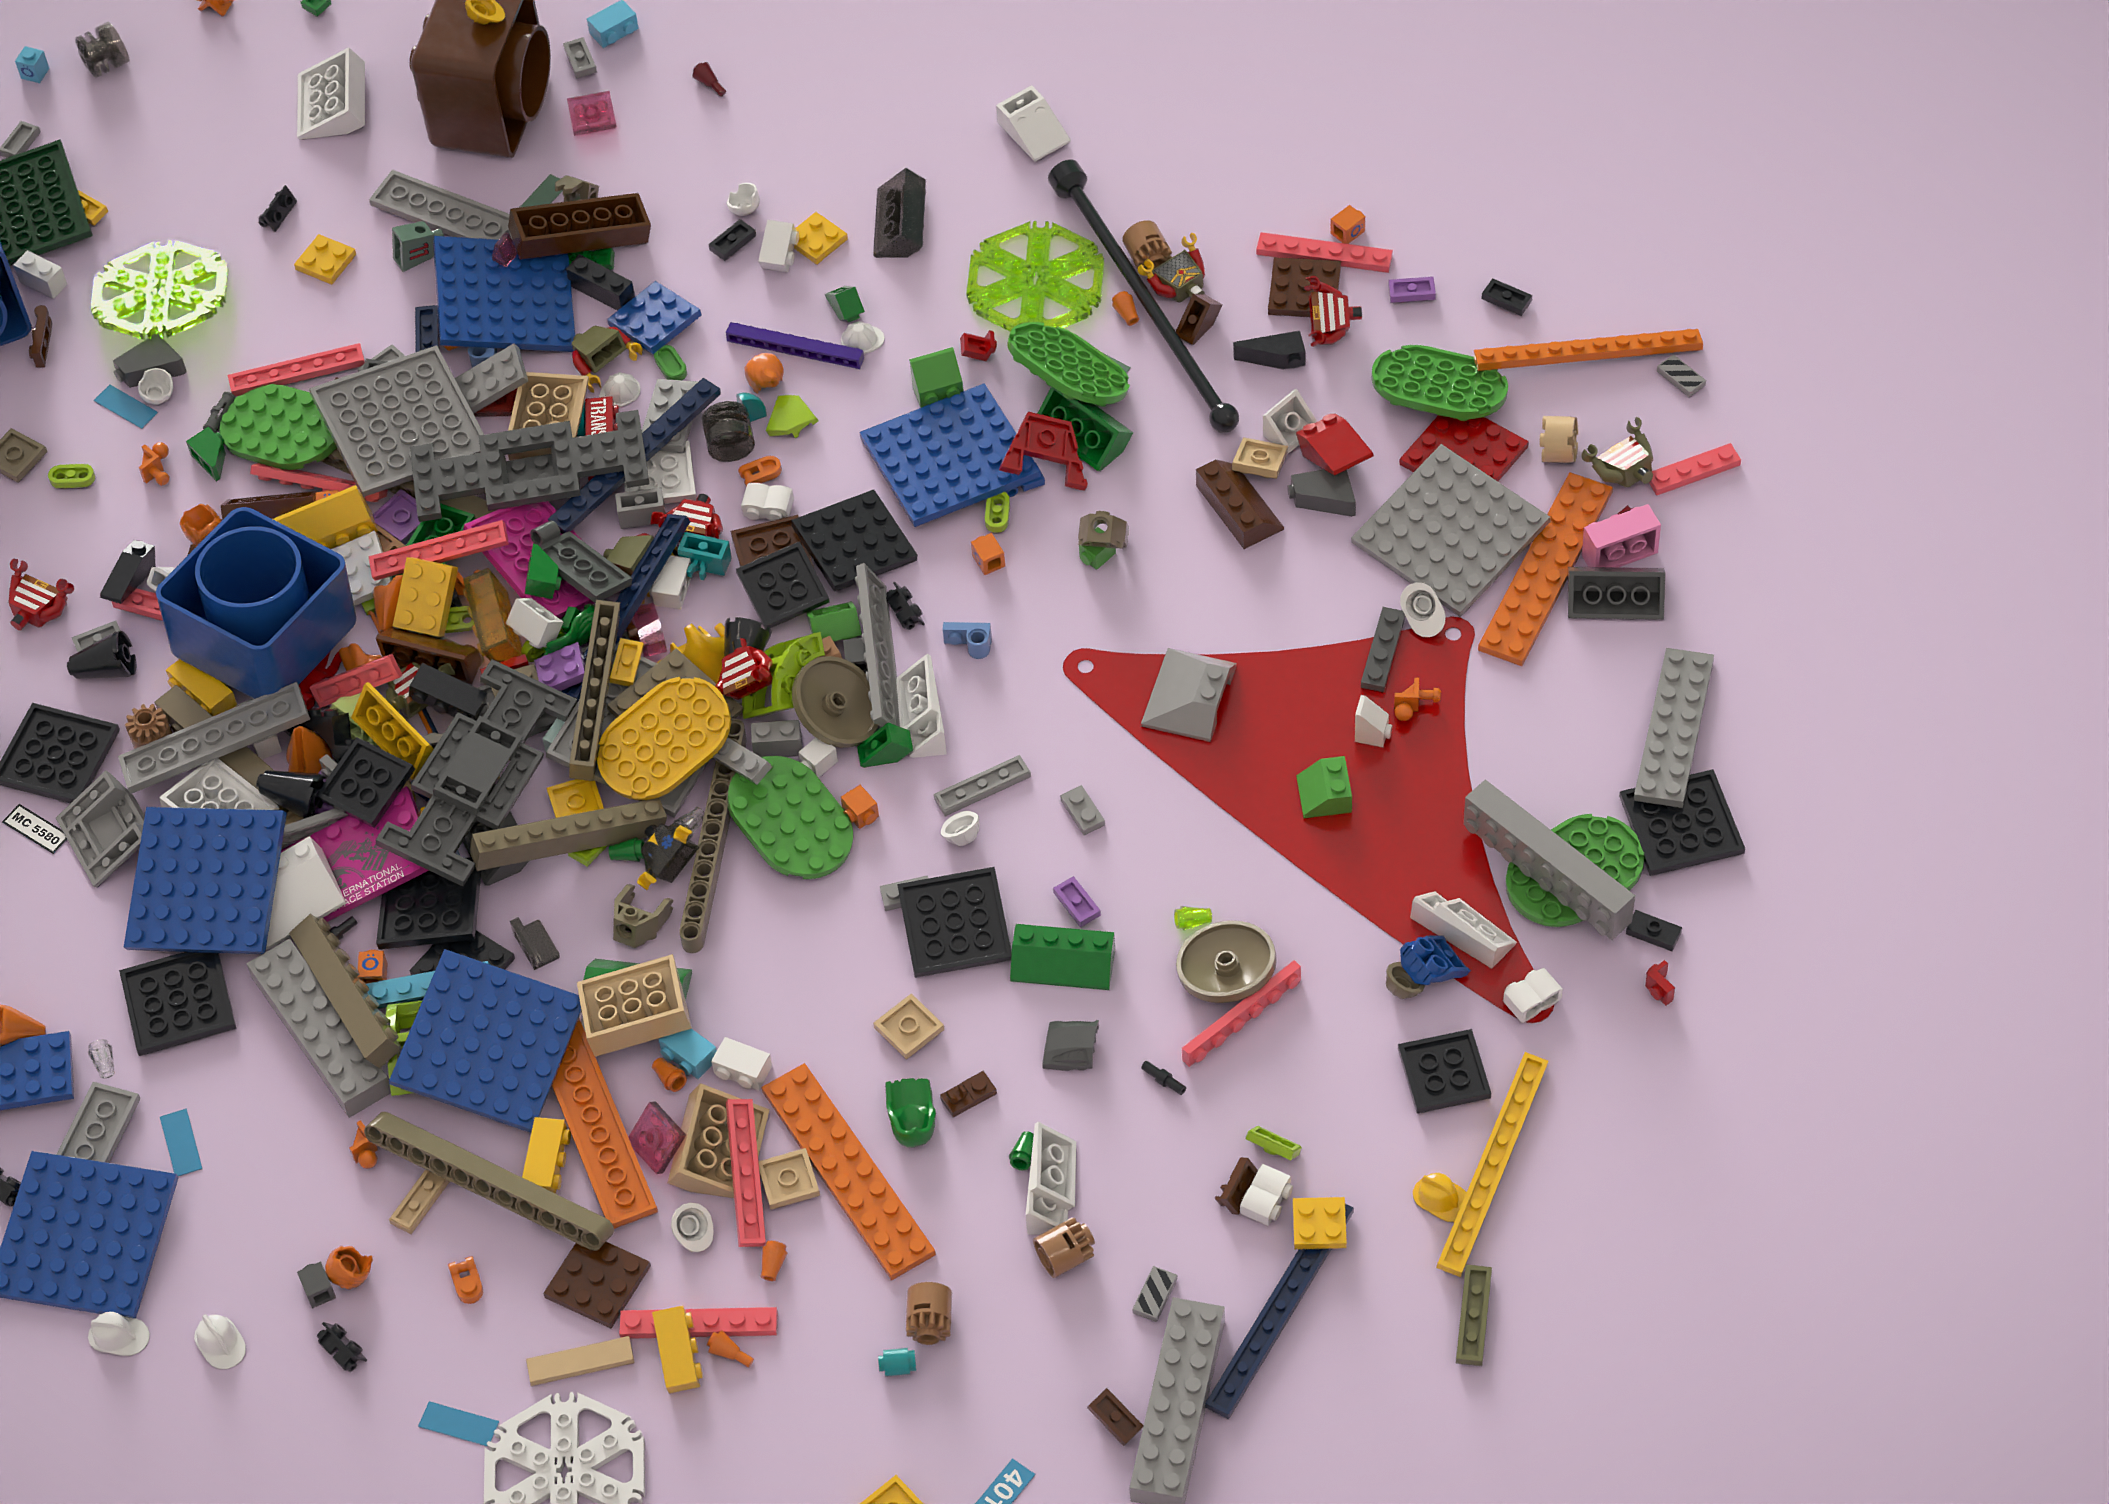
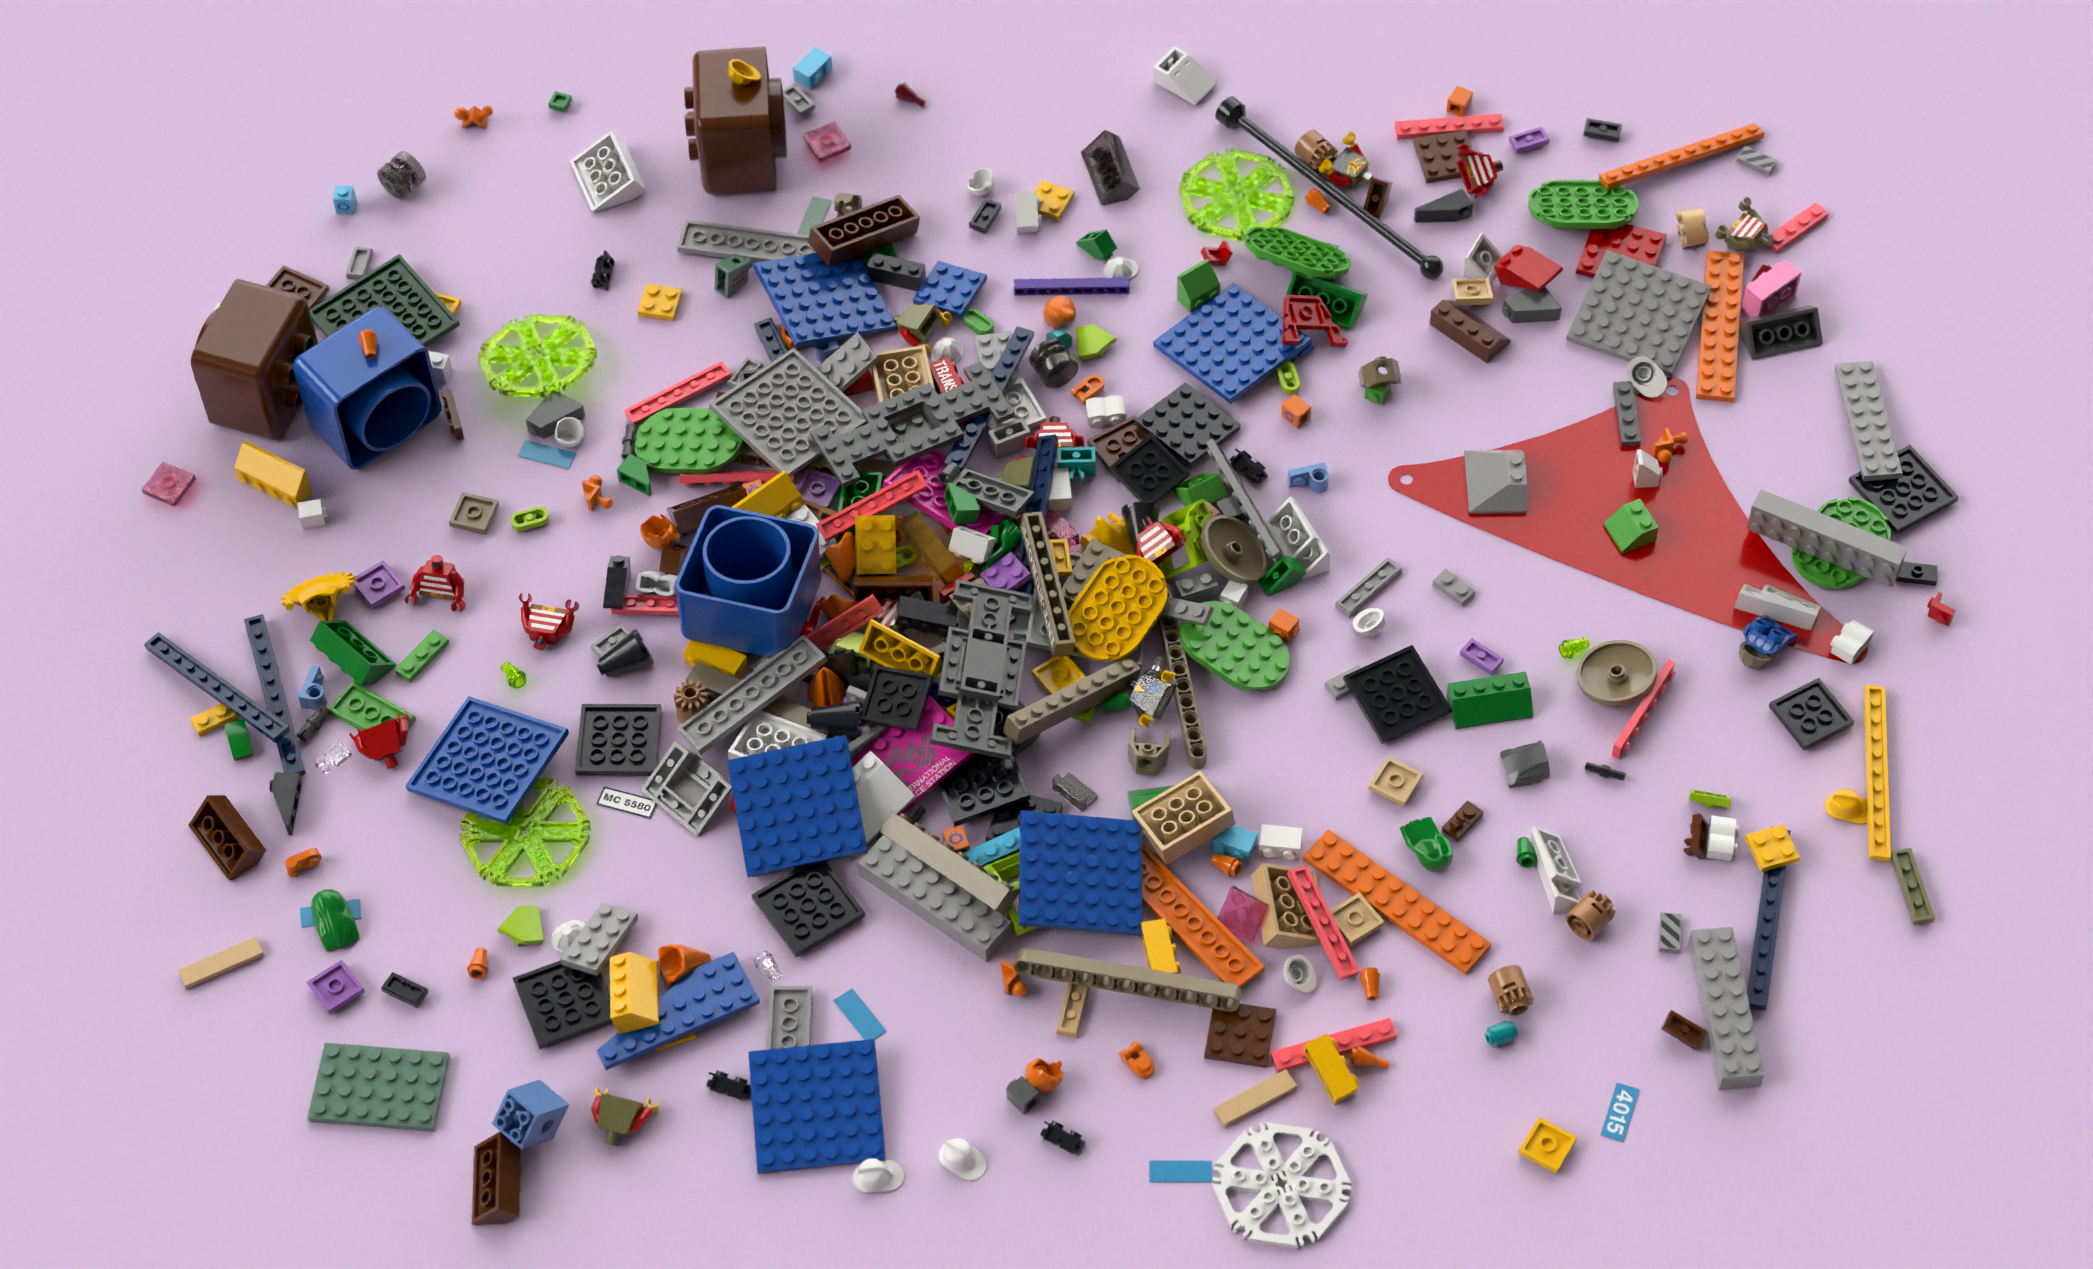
camera: 20 degrees left, 0 degrees up
(504, 250) = (815, 262): clear pink slope -> none

